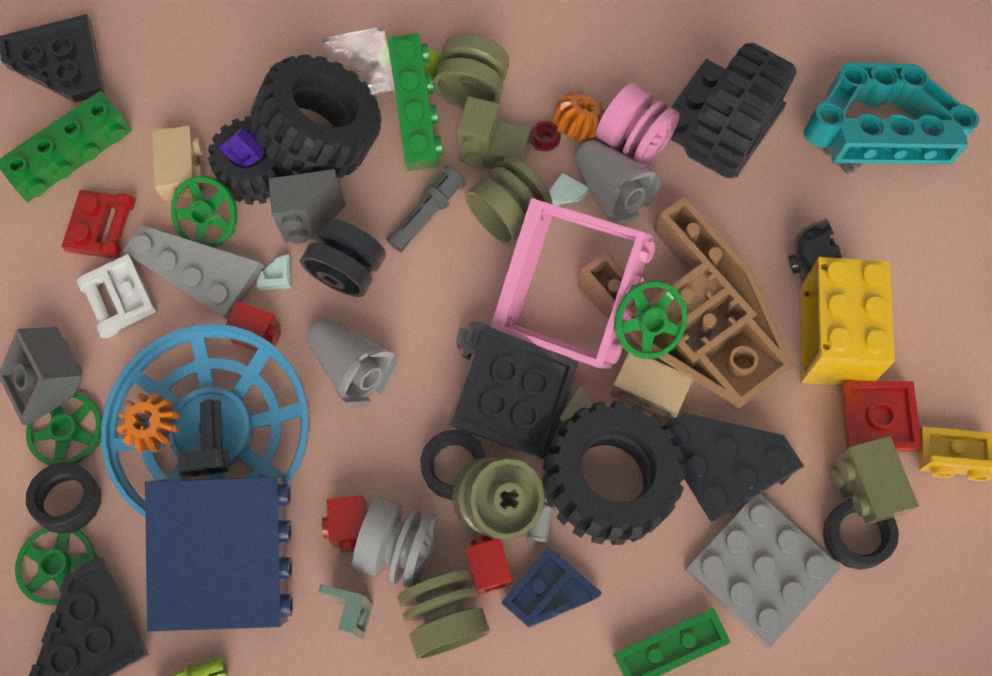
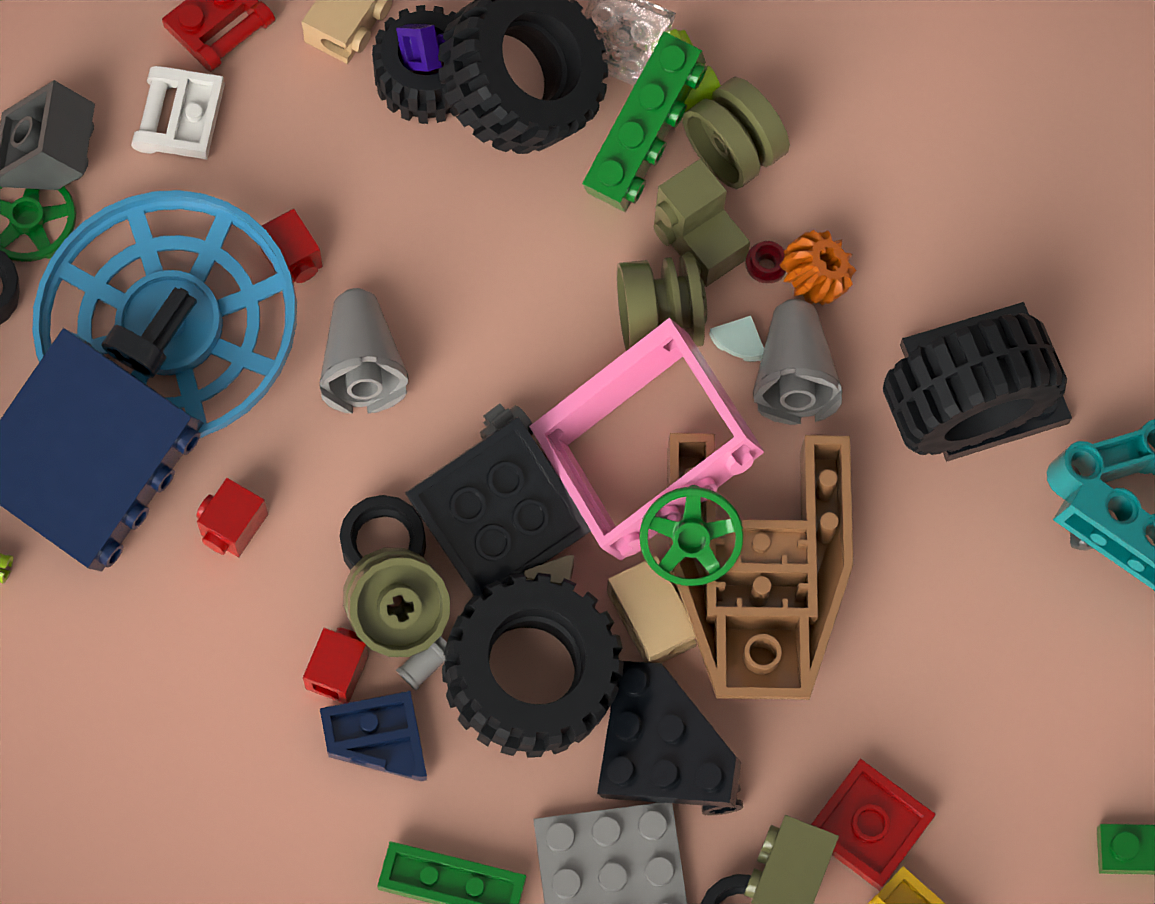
camera: 30 degrees right, 0 degrees up
(137, 429) = (96, 269): orange gear -> none
(199, 270) = (283, 148): light grey wing -> none
(203, 211) = (332, 85): green wheel -> none
(276, 274) = (359, 208): light aqua tile -> none
(303, 202) = (441, 154): dark grey slope -> none
(343, 257) = (436, 240): black wheel -> none
(355, 613) = (167, 609): sand green panel -> none
(393, 542) = (260, 570): light grey wheel -> none
(434, 198) = (589, 245): dark grey pin -> none
(443, 613) = (255, 665): olive wheel -> none
(637, 125) = (869, 321): bright pink wheel -> none
(810, 244) = (948, 608): black cylinder -> none
(846, 321) = (907, 693): yellow container -> none

